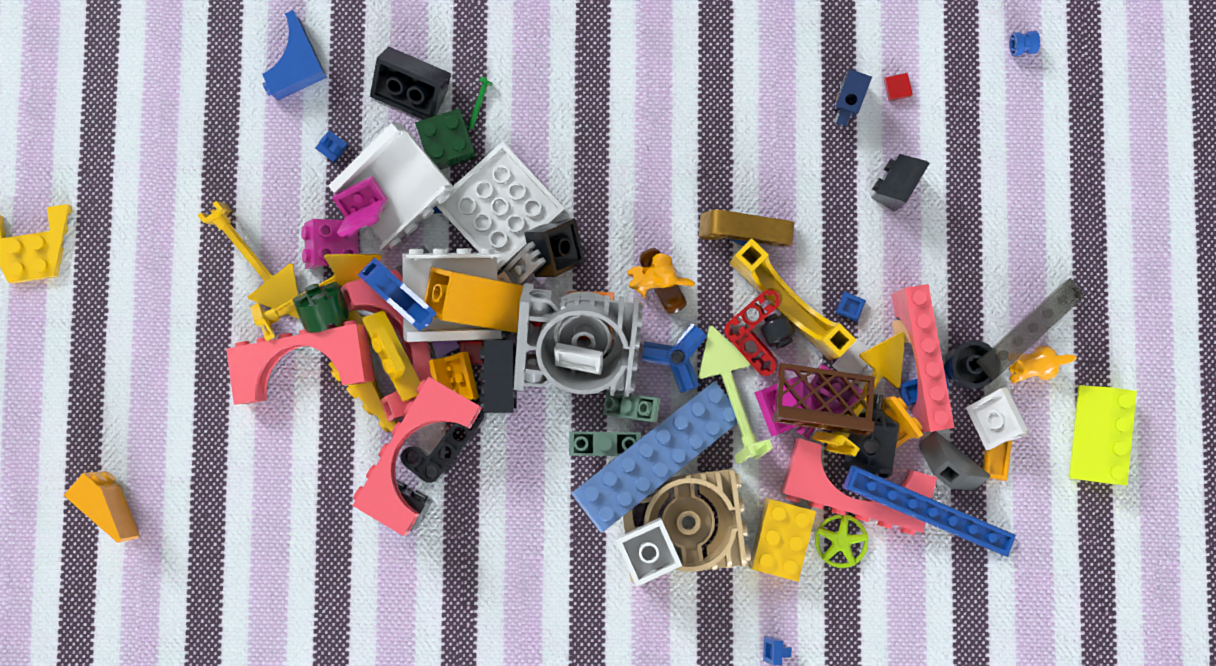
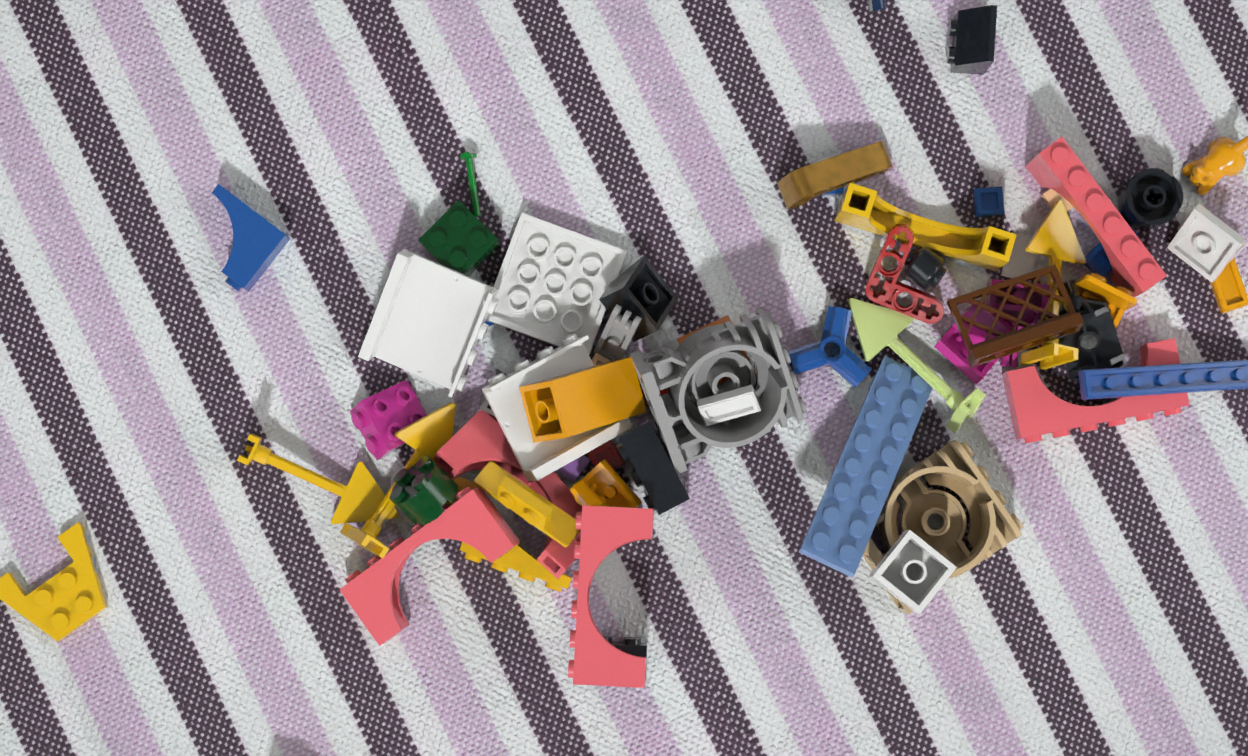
camera: 25 degrees left, 0 degrees up
(331, 146) = (336, 312): blue tile -> none
(360, 205) = (405, 361): dark pink bracket -> none
(397, 294) = (501, 435): blue arch -> none
(409, 83) = (387, 201): black slope -> none
(435, 457) = (627, 593): black beam -> none
(601, 443) = (799, 483): sand green slope -> none
(632, 407) = (812, 429): sand green slope -> none
(659, 275) = (766, 272): light orange animal -> none
(670, 297) = (756, 264): reddish brown piece -> none
(775, 650) = (1097, 611): blue tile -> none
(782, 539) = (1043, 488): yellow brick -> none
(841, 541) = (1108, 458): lime wheel -> none
(951, 464) = (1182, 316): dark grey slope -> none
(1030, 329) = (1193, 128): clear smoke tile -> none

